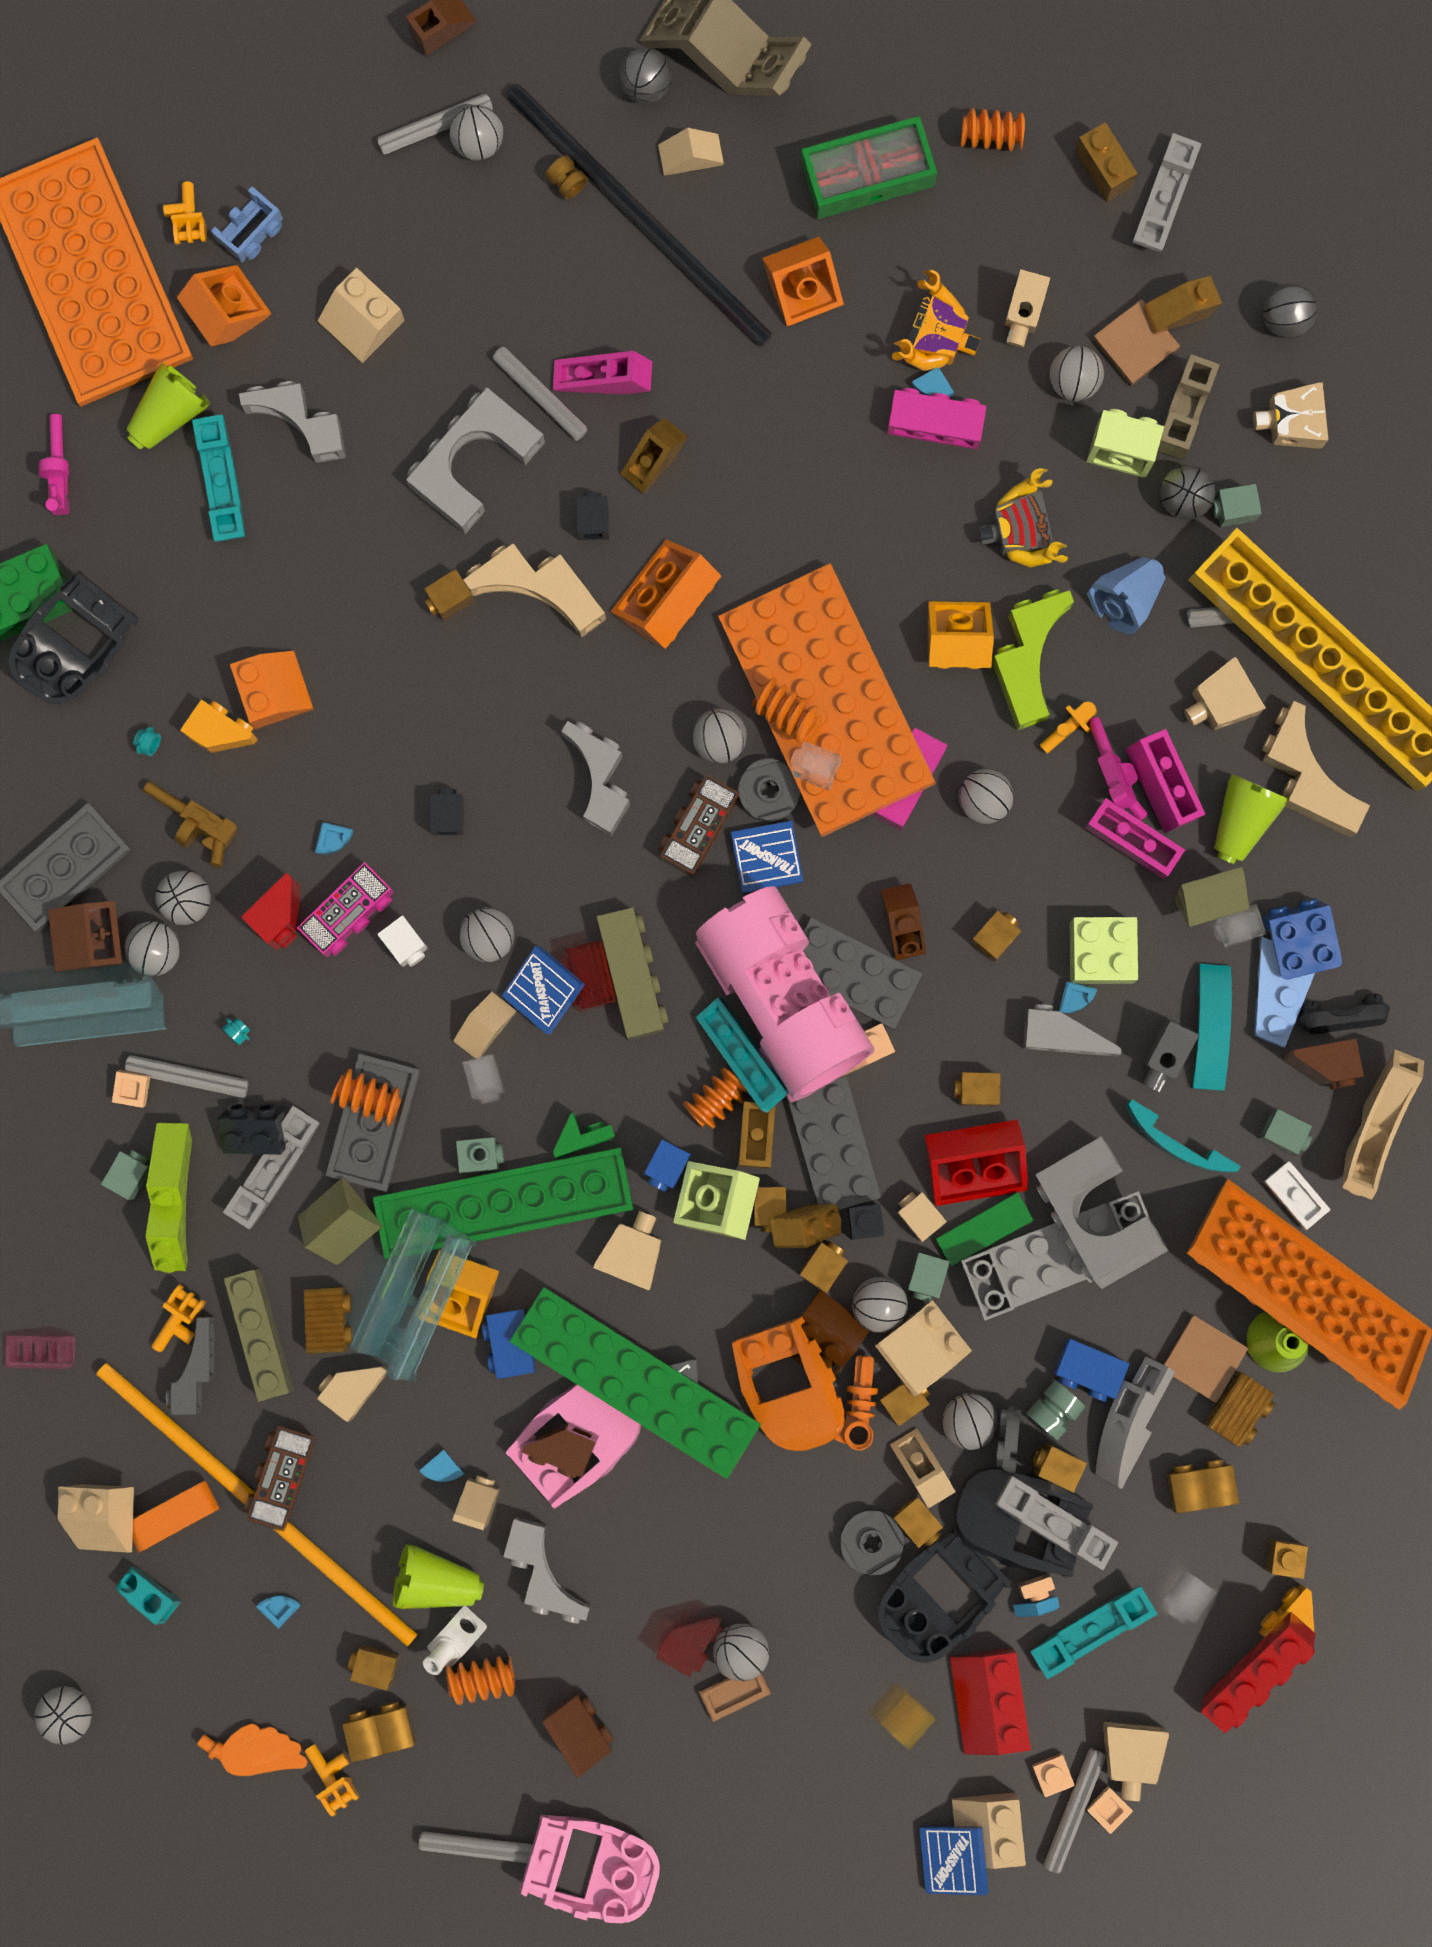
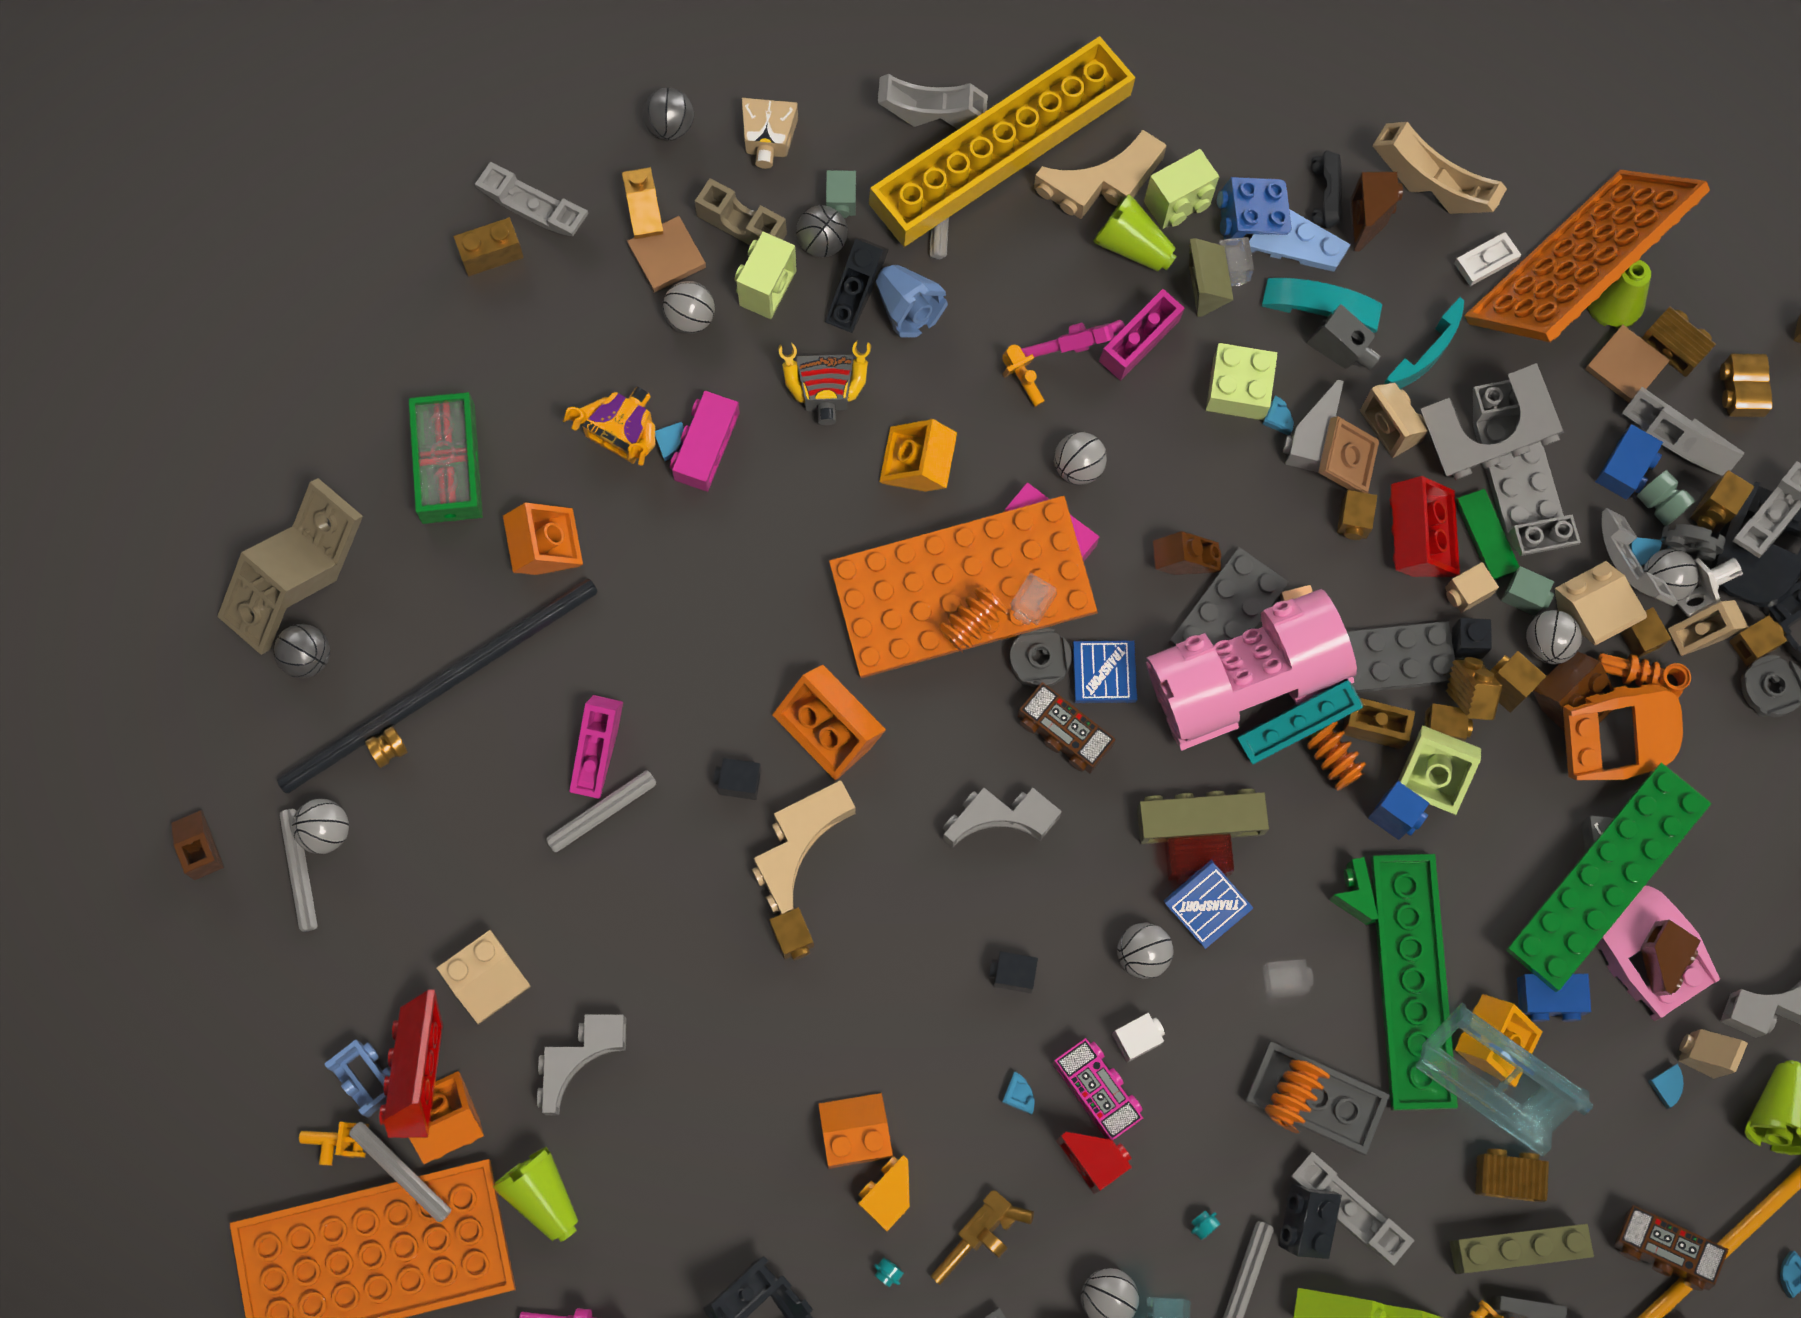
camera: 85 degrees left, 10 degrees down
(164, 276) = (400, 1172): none -> light grey axle
(183, 897) = (1061, 1257): light grey piece -> none
(219, 478) = (625, 1150): teal slope -> none
(257, 266) = (412, 1068): none -> red slope
(337, 1223) = (1414, 1150): olive slope -> none
(350, 1390) = (1584, 1162): tan slope -> none
(479, 1155) = (1363, 996): sand green brick -> none
(484, 1025) = (1233, 971): tan slope -> none
(485, 419) = (671, 927): light grey arch -> none
(632, 1252) = (1477, 863): tan torso -> none
(654, 454) = (687, 709): pearl gold slope -> none
(690, 151) = (387, 625): tan slope -> none
(719, 735) = (982, 691): light grey piece -> none
(970, 1463) = (1710, 582): none -> white bracket
(993, 129) = (431, 339): orange piece -> none
(996, 935) = (1213, 473): pearl gold brick -> none
(996, 1392) = (1645, 548): none -> dark azure tile
(1004, 1363) = (1617, 537): none -> light grey slope
(1020, 667) = (957, 406): lime arch -> none
(1027, 296) = (613, 339): tan torso -> none
(1040, 1072) = (1348, 455): none -> medium nougat tile
(1093, 1114) = (1393, 418): none -> tan slope
(1138, 539) = (856, 284): none -> black slope
(1165, 781) = (1092, 298): dark pink brick -> none
(1225, 698) = (1019, 236): tan torso -> none
(1286, 1133) = (1429, 257): sand green brick -> none
(1307, 856) = (1181, 189): none -> yellowish green brick
(1355, 573) = (925, 104): none -> light grey arch

